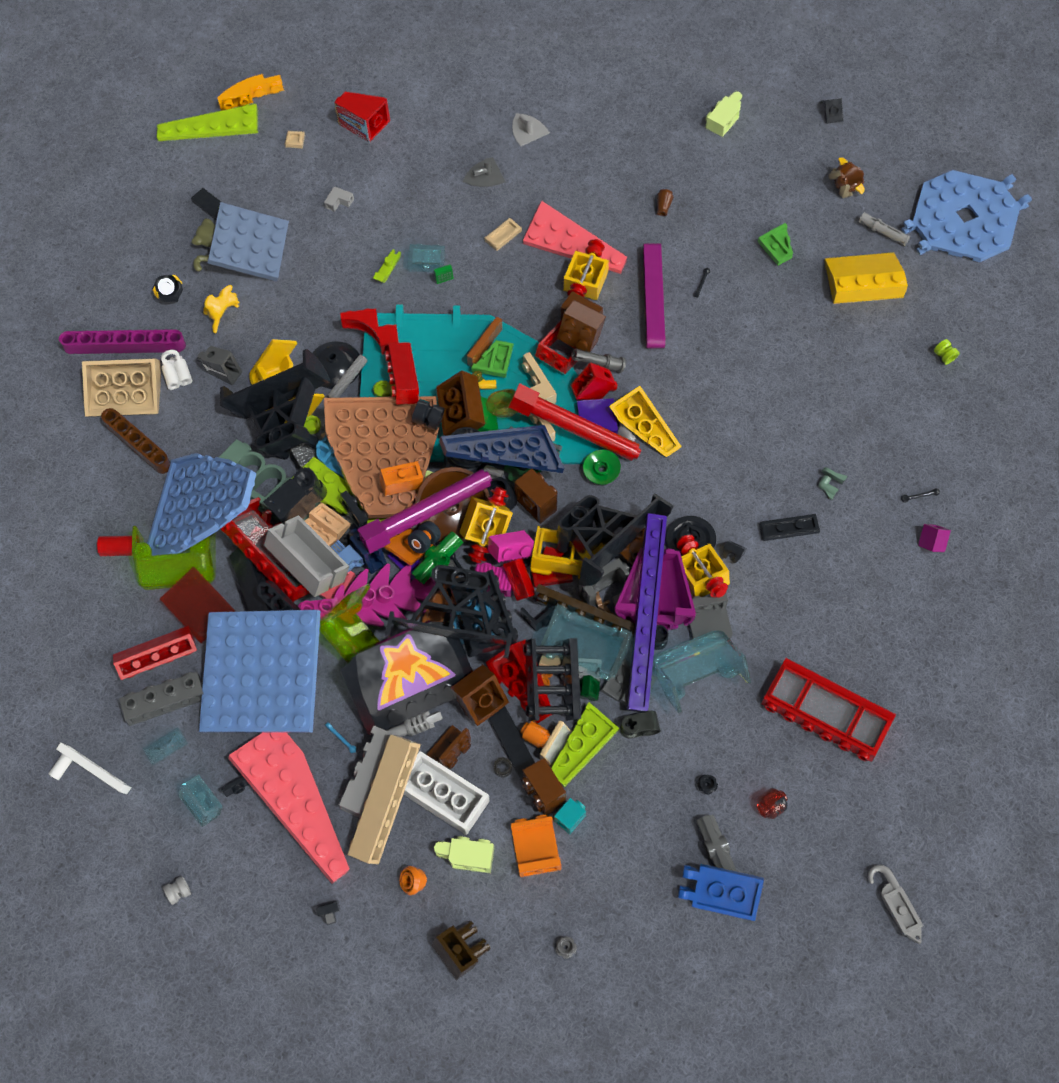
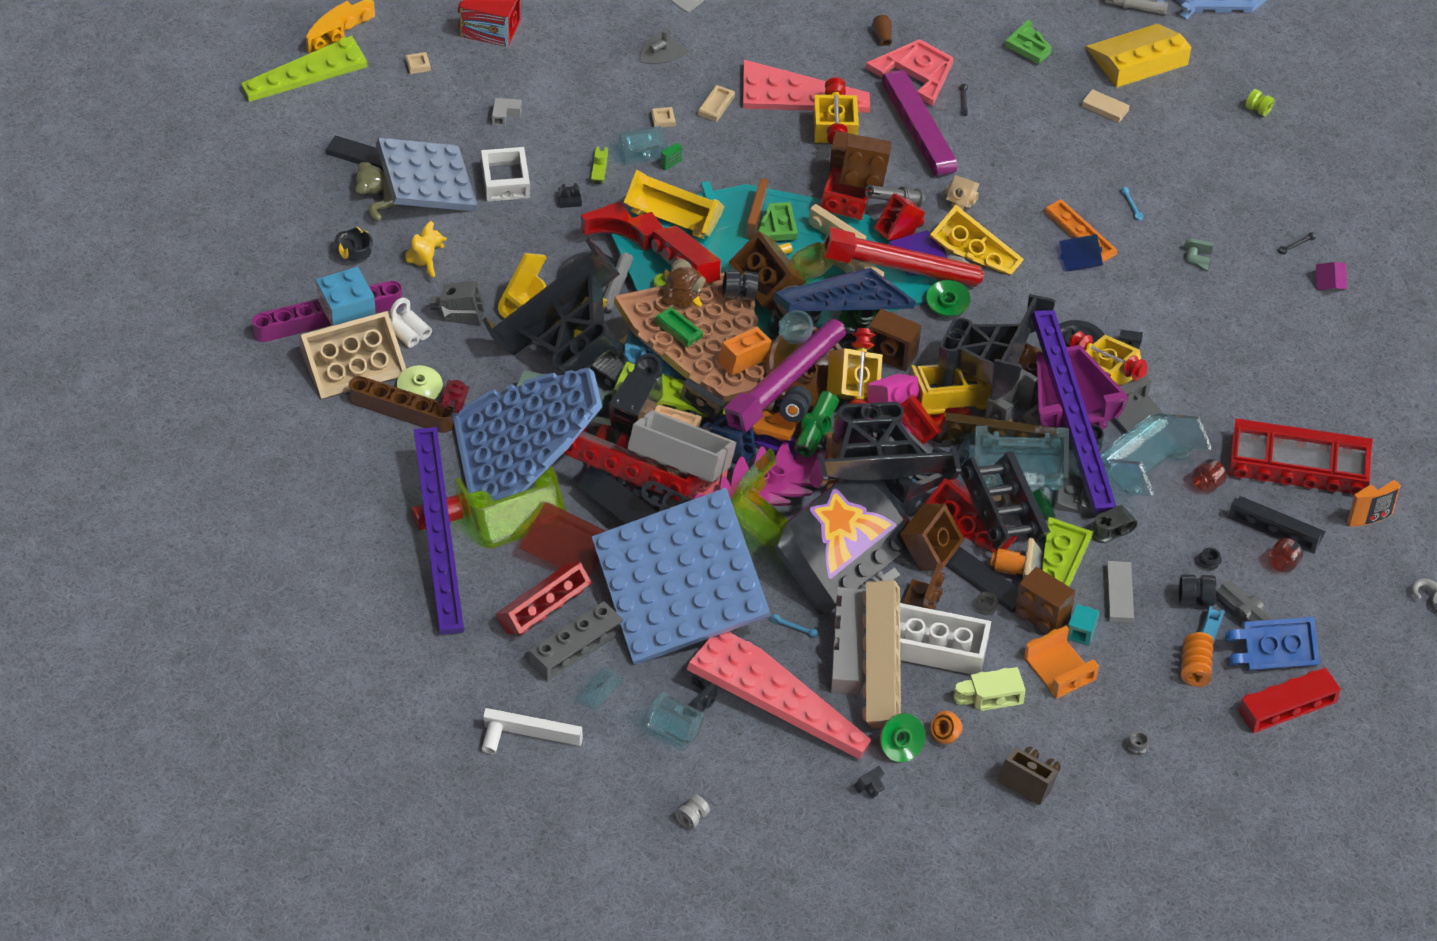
camera: 25 degrees left, 15 degrees down
(103, 567) = (438, 531): none -> dark purple plate
(130, 337) = (345, 296): none -> dark azure brick
(164, 432) = (429, 387): none -> yellowish green dish
(174, 446) = (454, 395): none -> dark red hinge
(310, 270) = (496, 189): none -> white window
(351, 288) = (569, 196): none -> black tile
(361, 440) = (678, 327): none -> green tile
(371, 885) = (911, 738): none -> green dish
(380, 403) = (683, 285): none -> reddish brown hair
(417, 318) = (673, 204): none -> yellow windscreen
(446, 471) = (796, 327): none -> clear light blue hair
(456, 236) = (663, 117): none -> tan tile
(618, 791) = (1120, 592): none -> light grey tile
(648, 882) = (1197, 659): none -> orange piece
(657, 371) = (969, 190): none -> tan brick
(676, 854) = (1211, 625): none -> dark azure bar
(680, 814) = (1197, 590): none -> black wheel
(682, 241) = (921, 63): none -> coral wing
(711, 949) = (1289, 700): none -> red brick
(731, 454) = (1081, 253): none -> clear blue piece
(741, 432) = (1076, 226): none -> orange tile
(741, 703) = (1209, 475): none -> clear red head
(777, 770) = (1275, 523): none -> black fence
(789, 527) = (1176, 306): black tile -> none
(796, 431) = (1138, 216): none -> dark azure hinge
(815, 319) = (1105, 106): none -> tan tile
(864, 780) = (1373, 504): none -> orange slope

